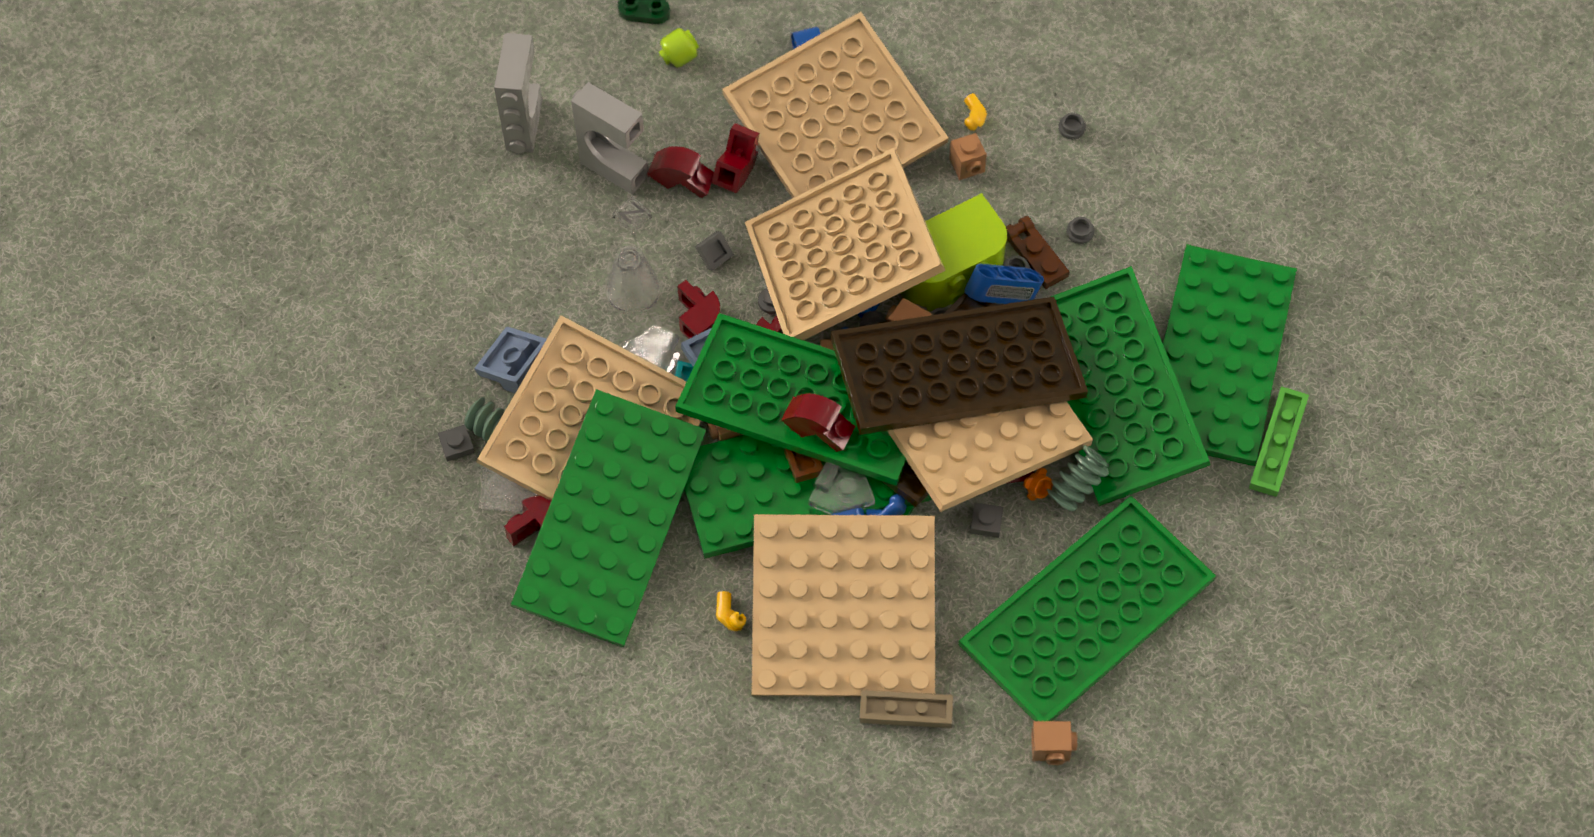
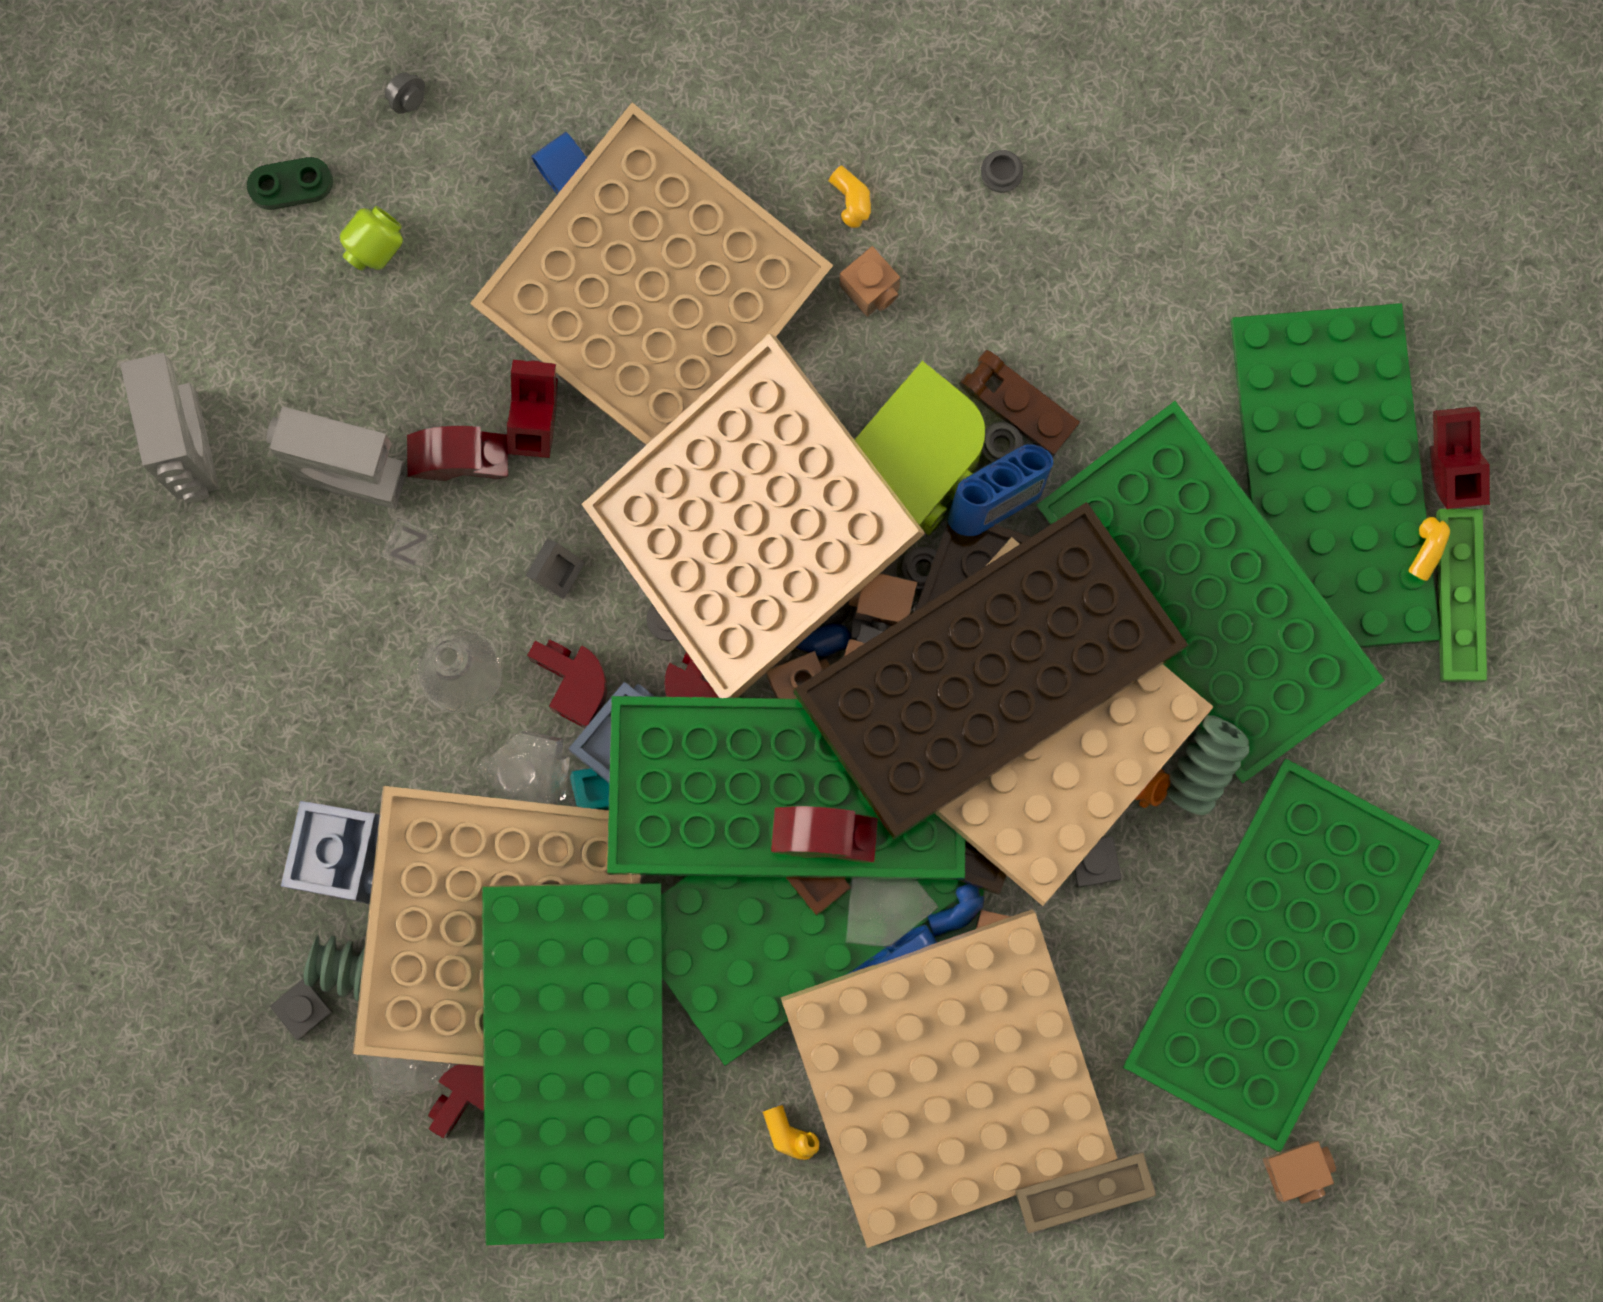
camera: 20 degrees left, 20 degrees up
(1080, 230) = (1072, 346): dark grey plate -> none
(1271, 398) = (1431, 552): none -> yellow arm
(1303, 358) = (1456, 459): none -> dark red brick

